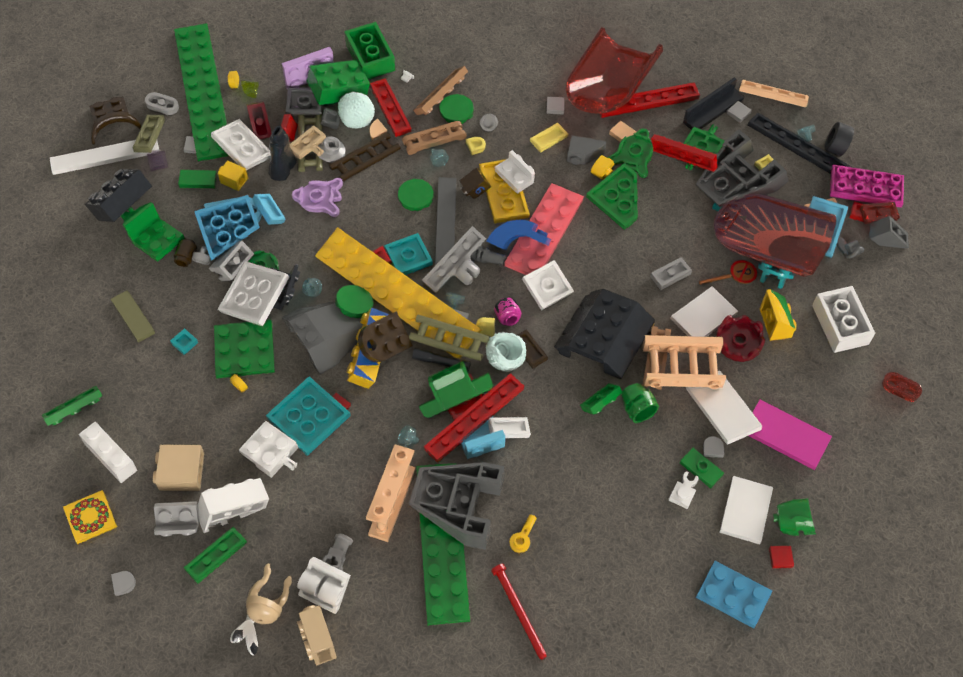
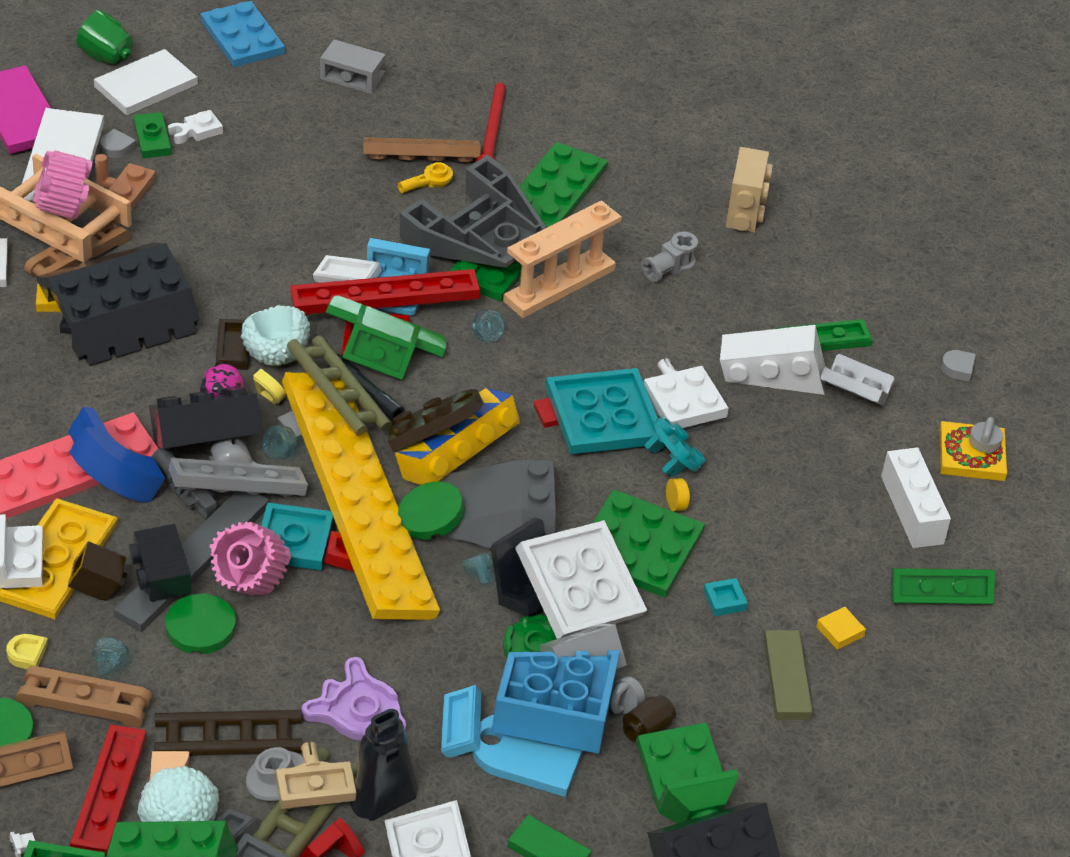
camera: 150 degrees left, 15 degrees down
(82, 520) = (986, 436): none -> light grey tile
(117, 356) = (841, 628): none -> yellow tile
(179, 467) = (822, 430): tan brick -> none
(232, 175) = (486, 808): yellow brick -> none
(254, 400) = (674, 439): none -> teal plate
(260, 611) = (797, 247): tan hair -> none
(323, 585) = (711, 226): white plate -> none
(412, 219) = (249, 558): none -> bright pink brick
(450, 199) = (161, 562): none -> black brick
(493, 276) = (205, 417): none -> black brick
(544, 555) = (432, 148): none -> medium nougat plate
(547, 285) = (131, 388): white plate -> none
(601, 398) = (200, 241): green plate -> none
(639, 403) = (161, 211): green helmet -> none
(640, 601) = (352, 66): none -> light grey brick
(676, 419) = (130, 184): none -> nougat plate
(680, 345) = (62, 184): none -> bright pink brick
(781, 557) = (156, 33): red tile -> none

